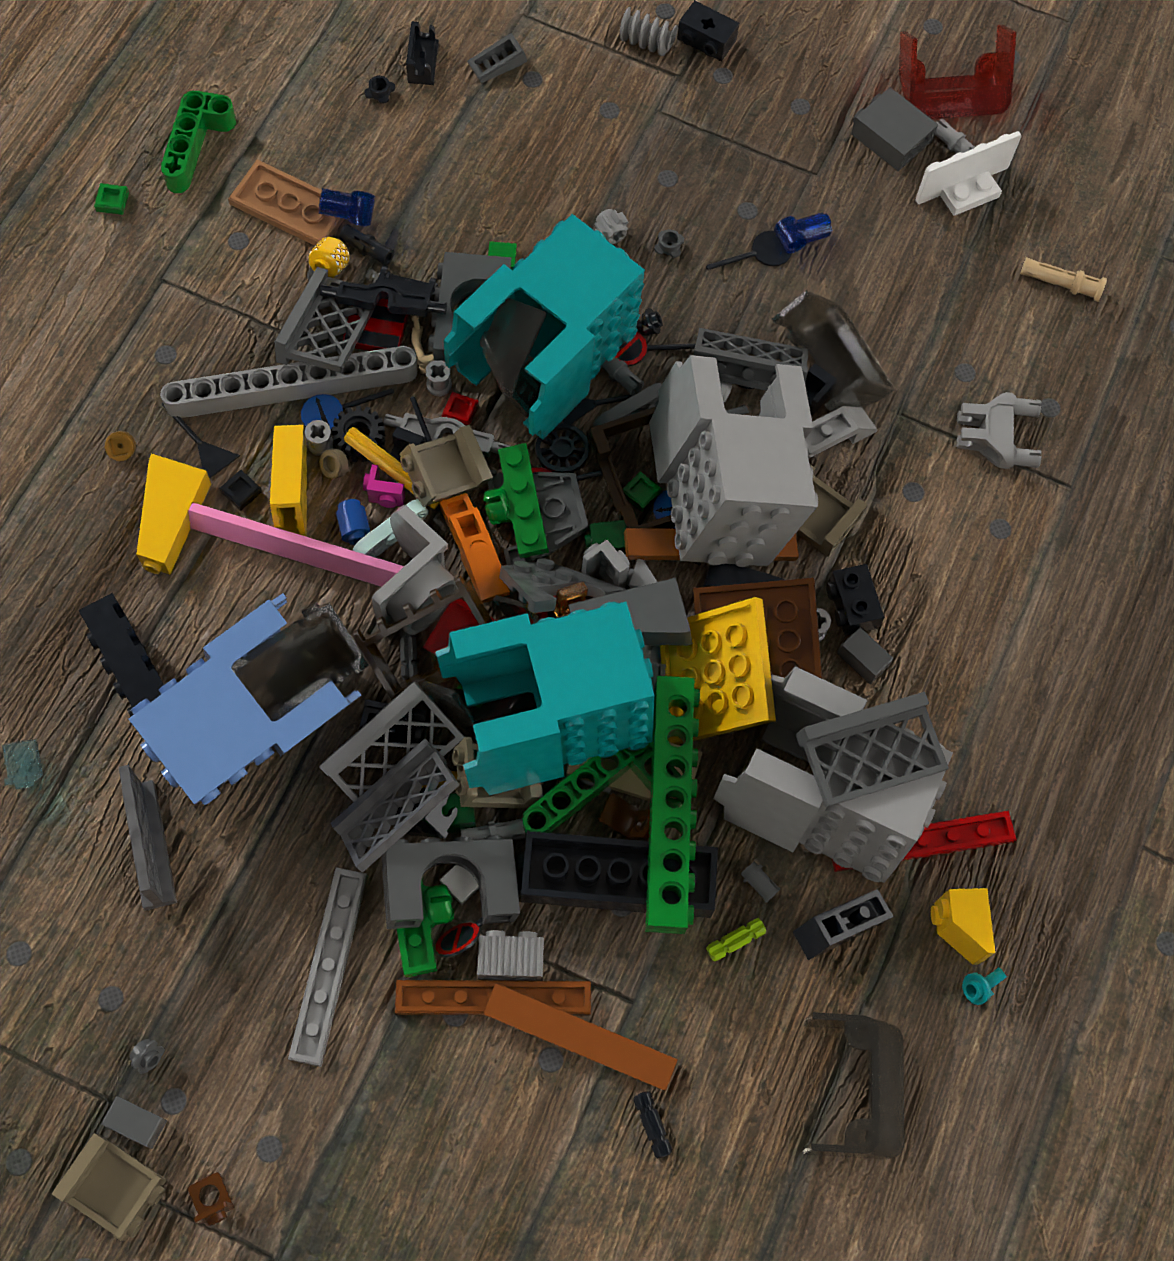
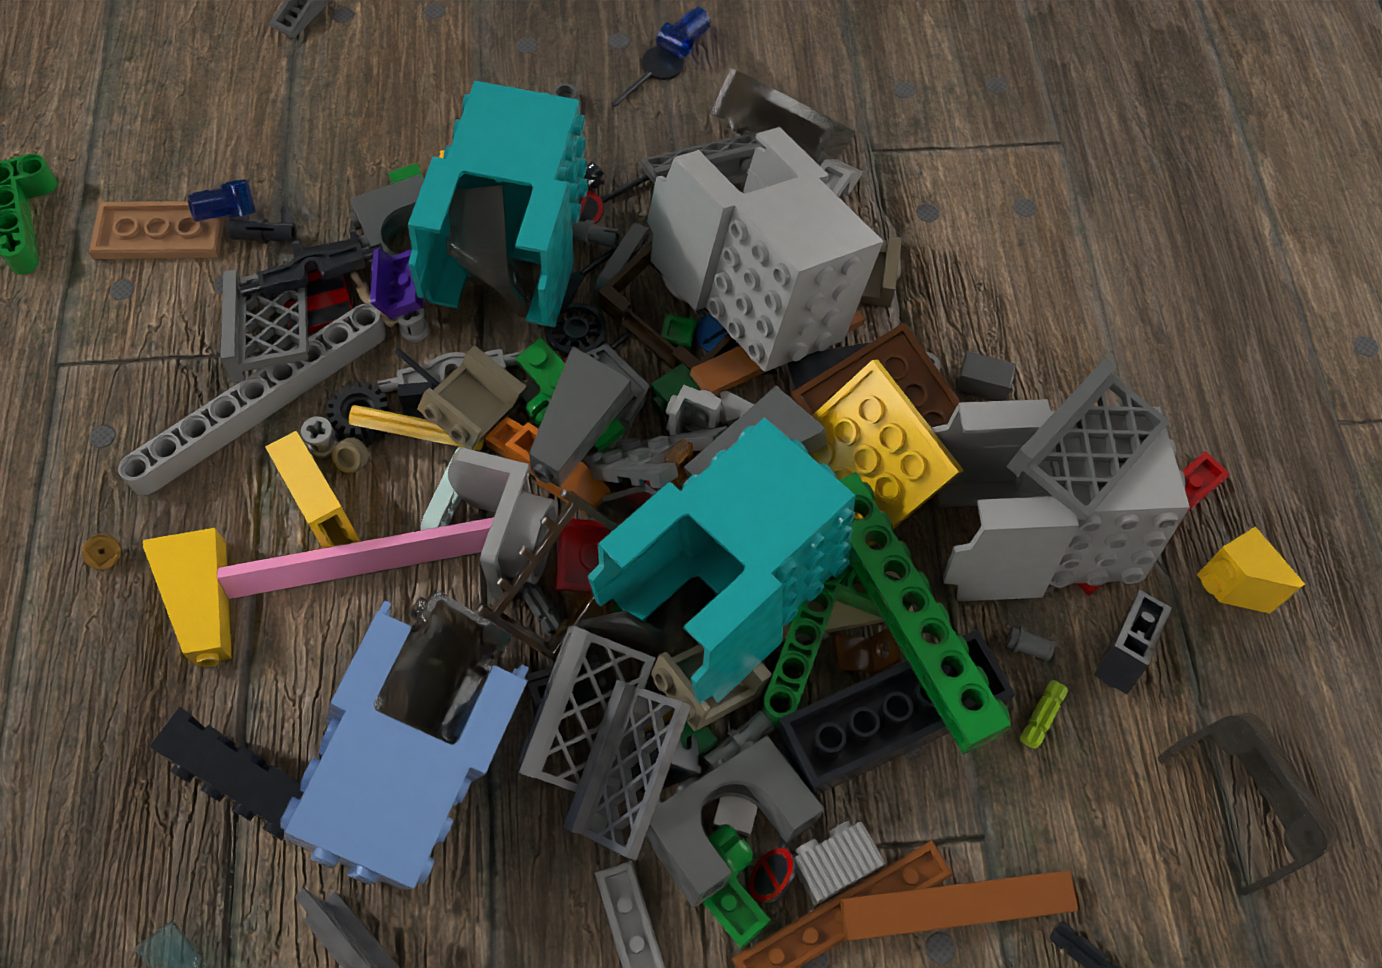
camera: 25 degrees left, 5 degrees down
(212, 457) = (210, 514): black piece -> none
(240, 490) = (262, 531): black tile -> none
(327, 407) = (314, 403): blue piece -> none
(330, 255) = (230, 254): yellow head -> none
(352, 521) = (403, 502): blue brick -> none
(379, 83) = (193, 84): black plate -> none
(383, 492) = (419, 458): dark pink bracket -> none
(421, 55) = (220, 36): black hinge -> none
(429, 344) = (393, 284): none -> dark purple bracket
(460, 408) = (450, 339): red tile -> none
(513, 521) = (577, 415): none -> dark grey slope
(854, 599) = (945, 329): black brick -> none
(978, 988) = (1294, 631): teal plate -> none
(996, 430) = (966, 126): light grey connector -> none

